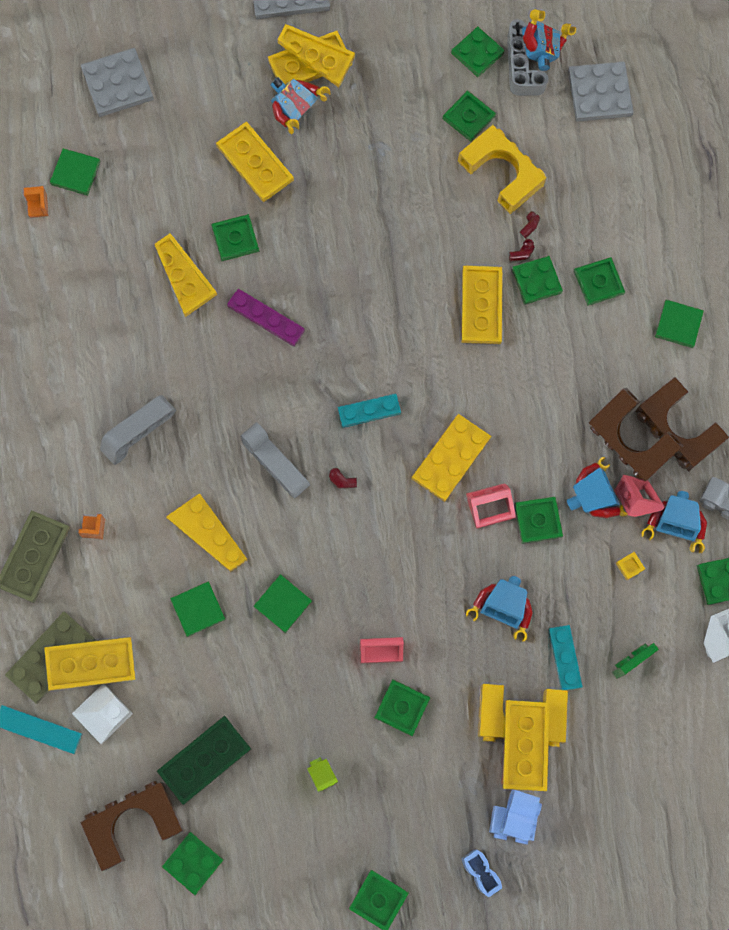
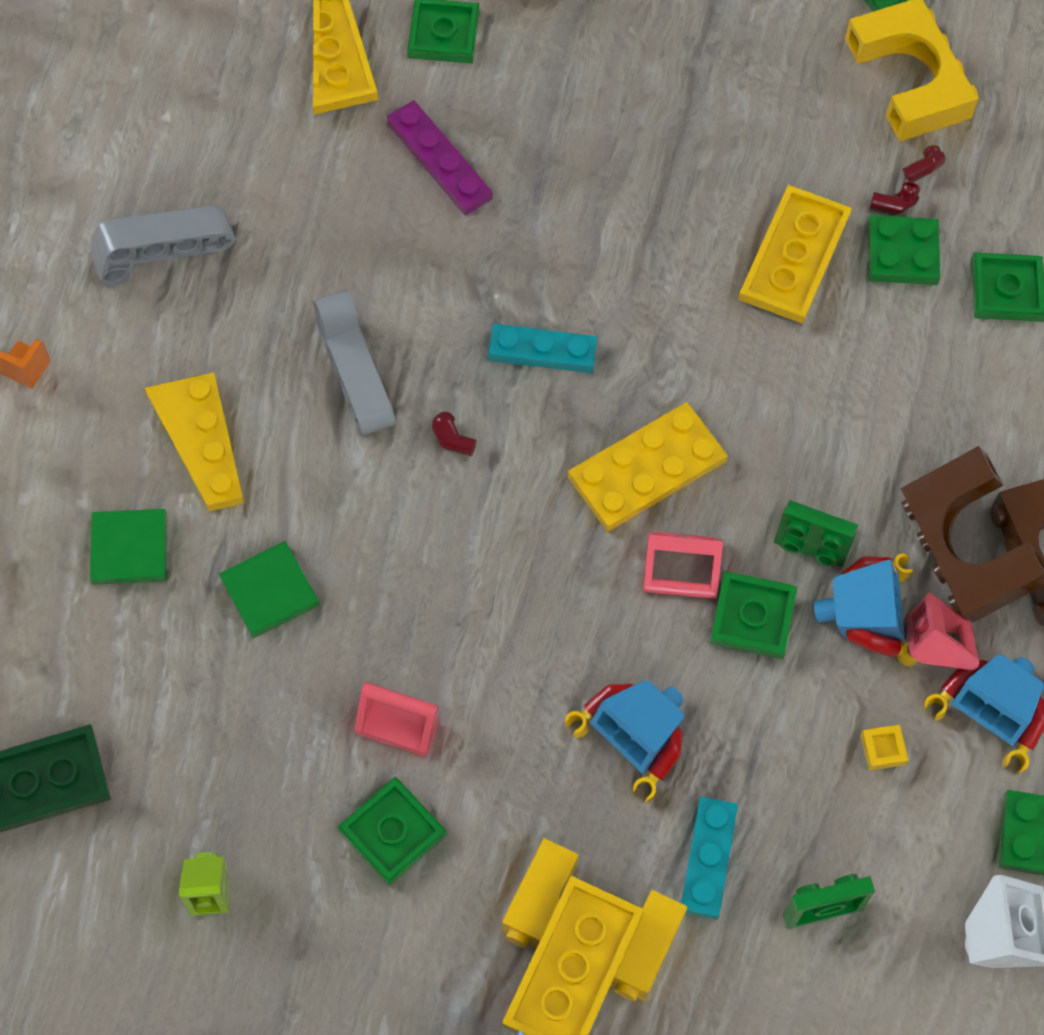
camera: 25 degrees right, 10 degrees down
(553, 462) = (815, 534): none -> green bracket

